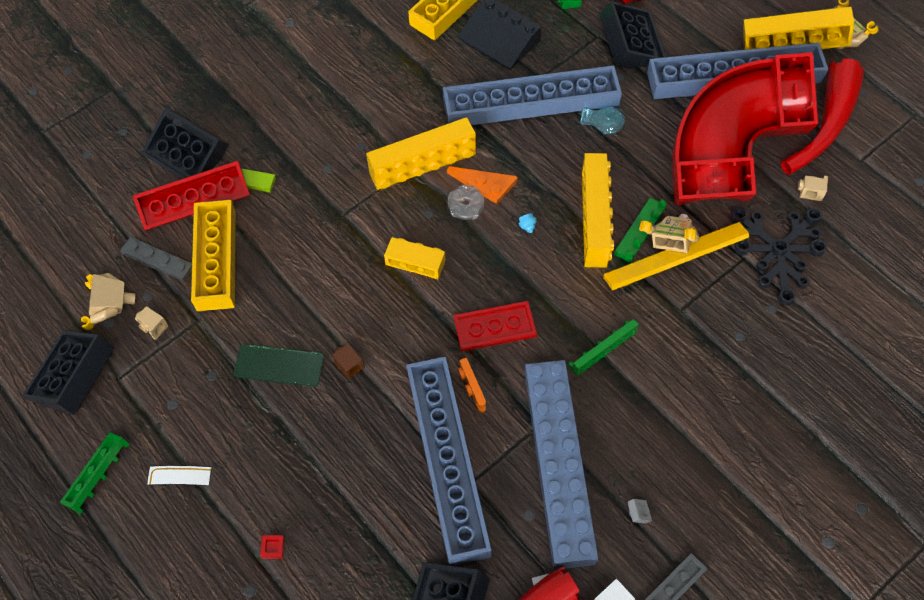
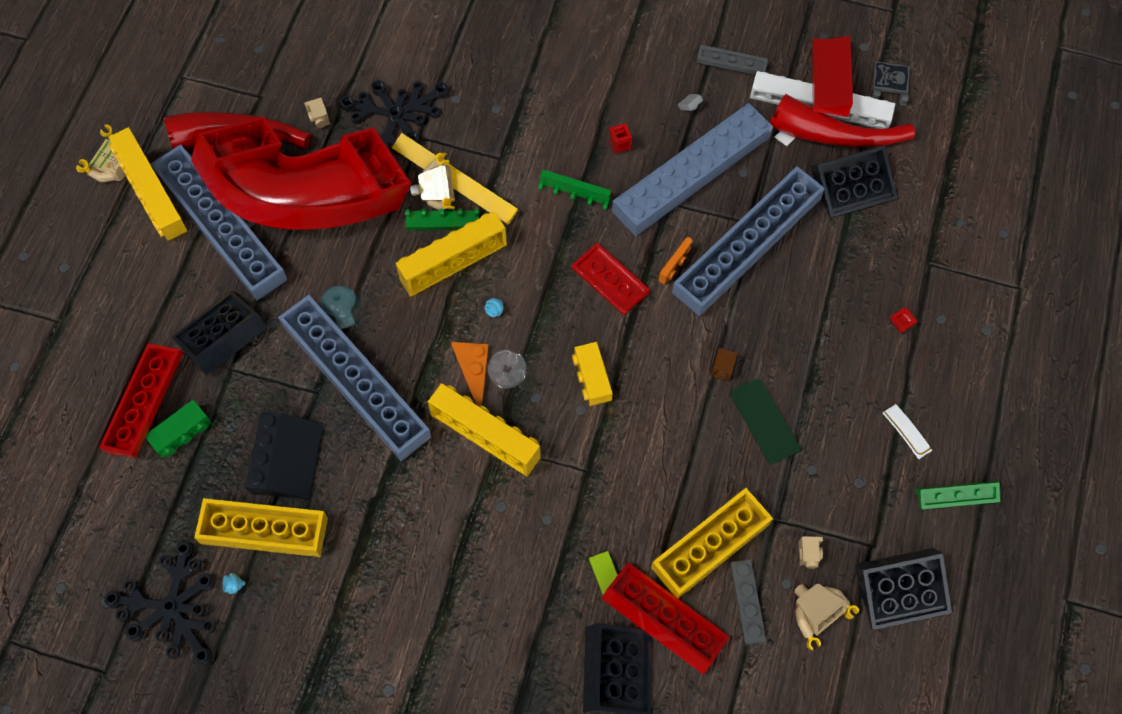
camera: 125 degrees left, 5 degrees up
(633, 412) = (620, 138): none -> red brick

